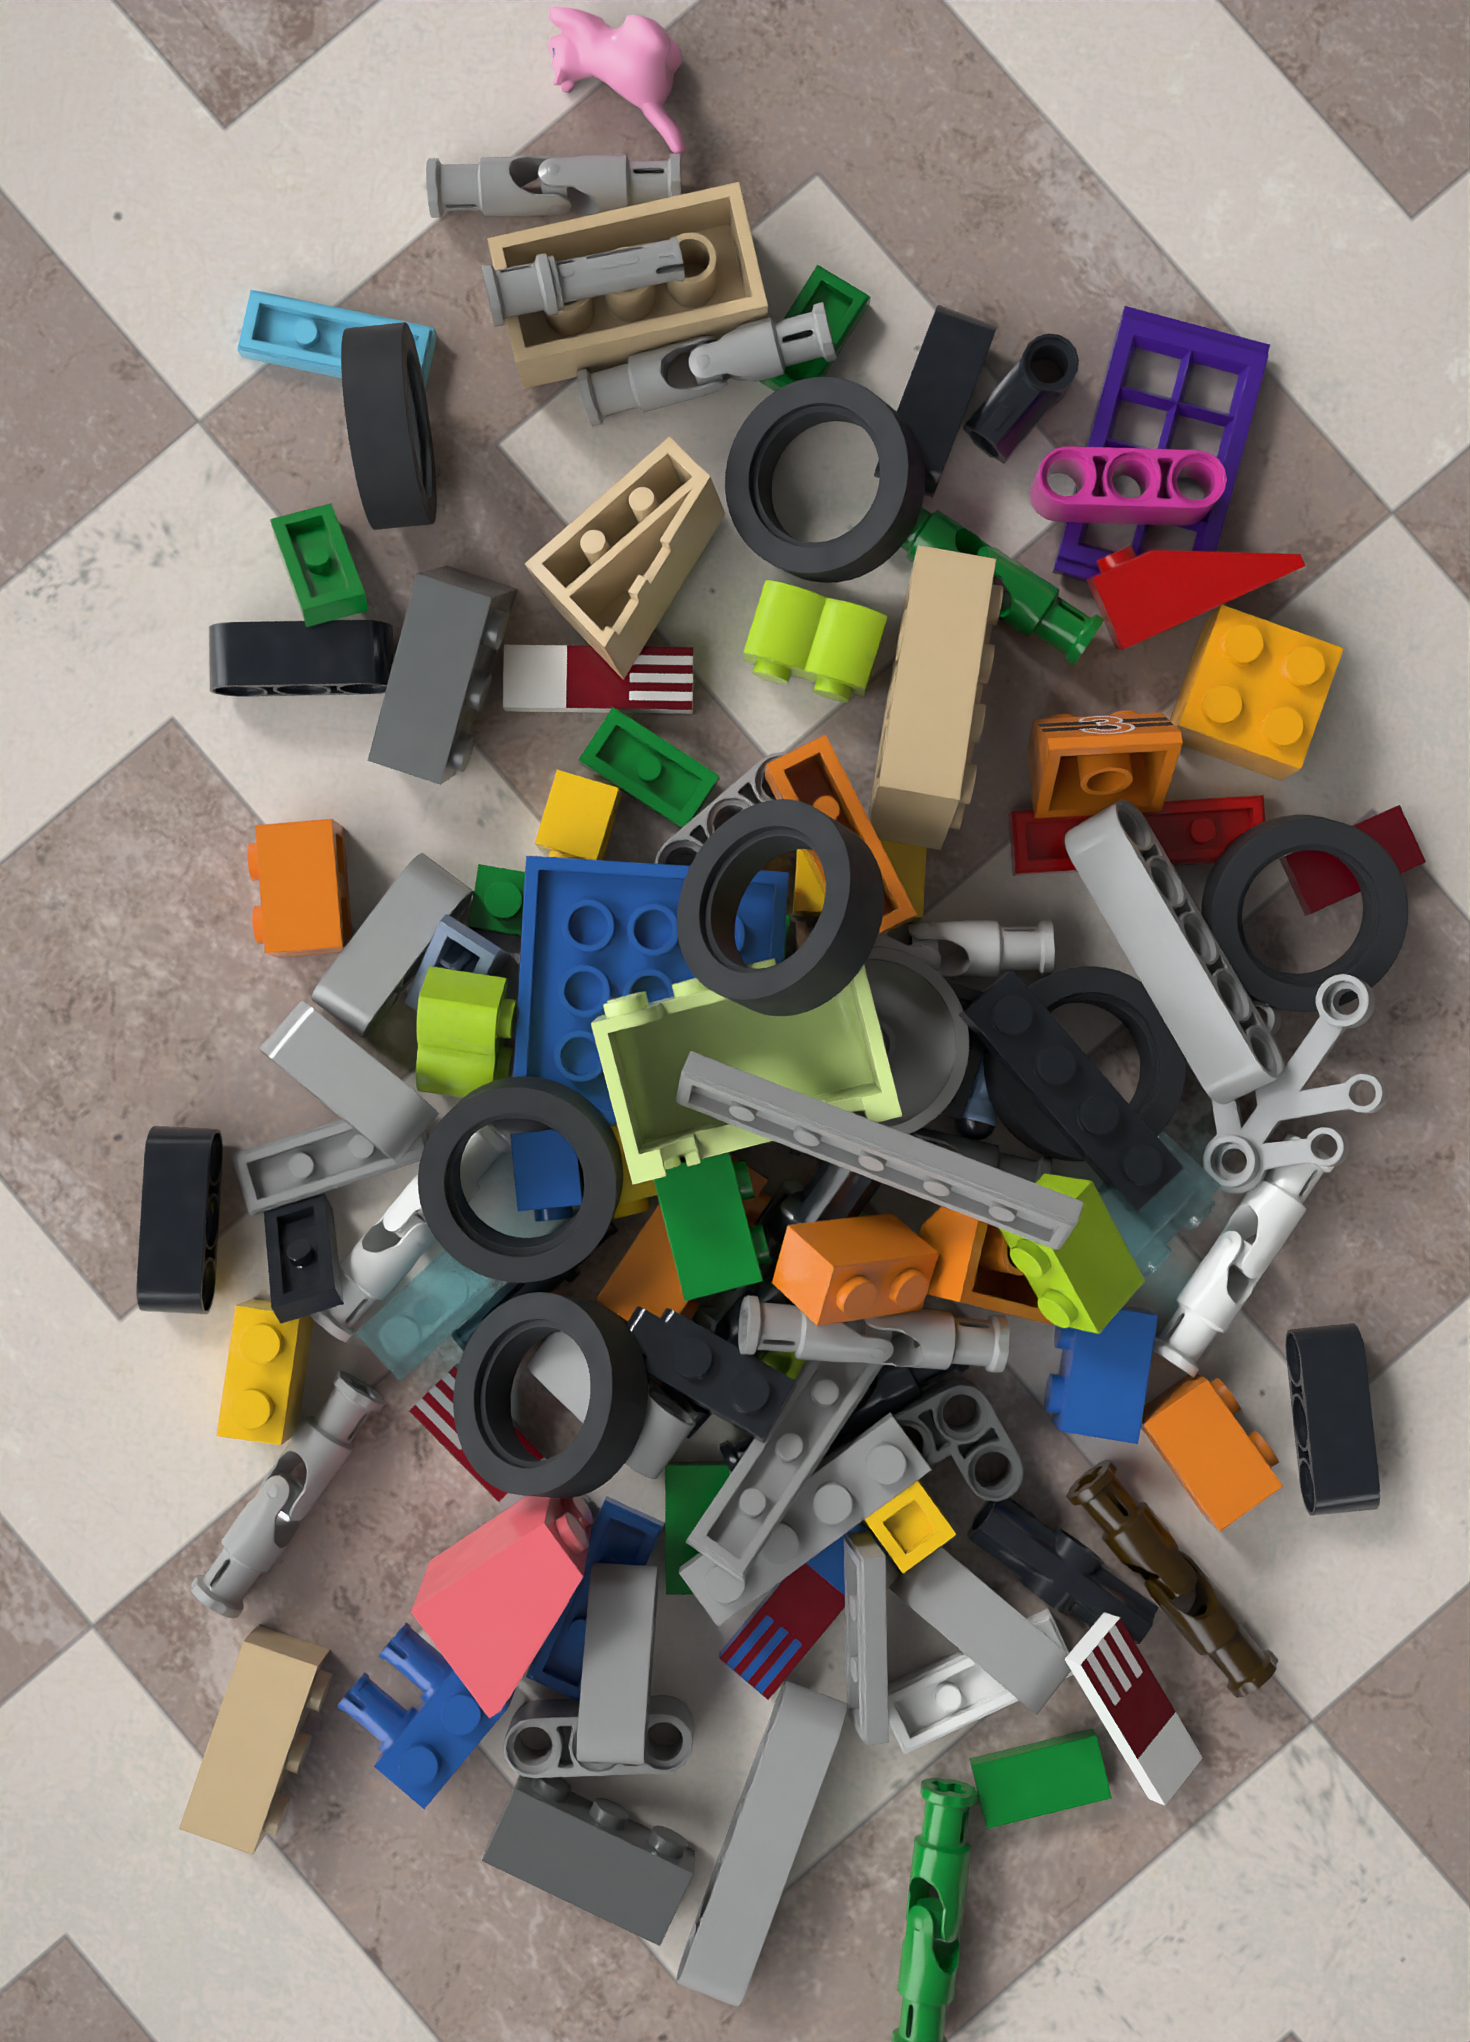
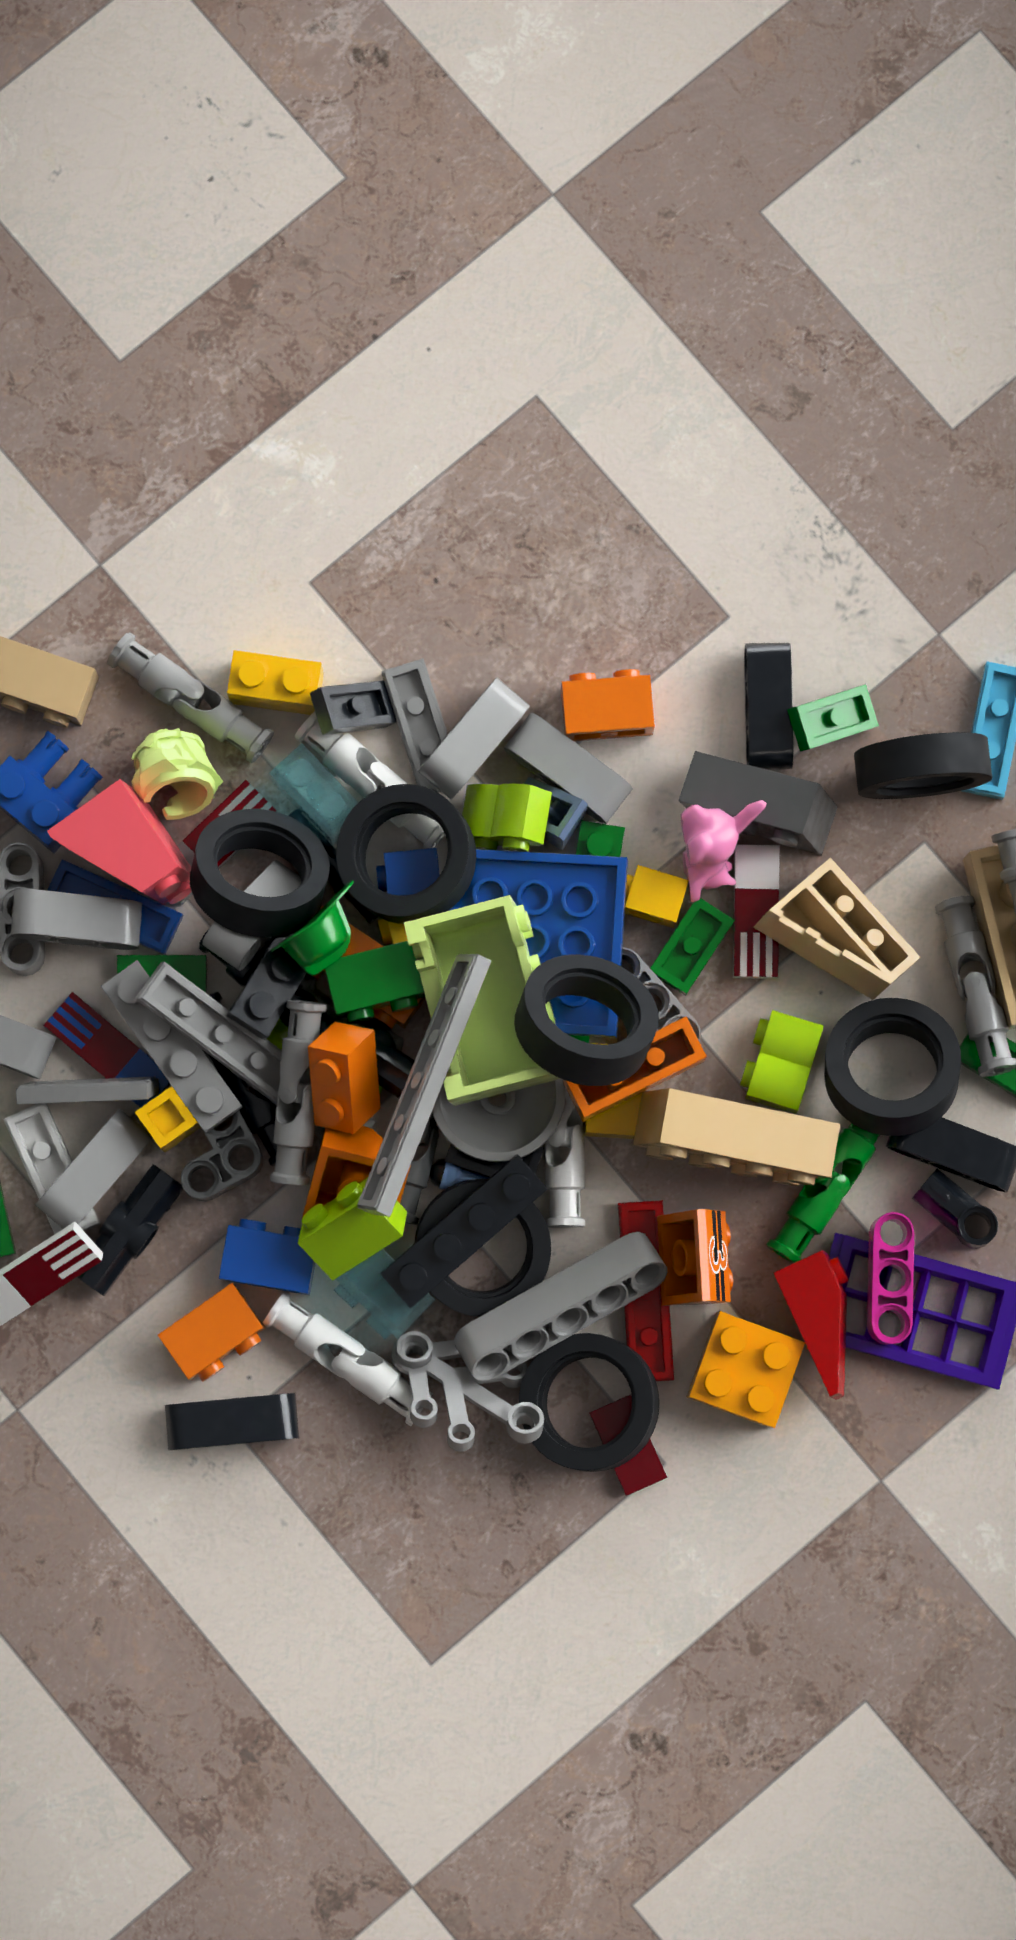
camera: 85 degrees right, 5 degrees down
(179, 1220) = (379, 624): black beam -> none
(380, 1515) = (175, 760): none -> yellowish green helmet
(502, 735) = (710, 842): none -> bright pink animal
(651, 1304) = (322, 938): none -> green piece
(1149, 1549) = (142, 1290): dark brown piece -> none

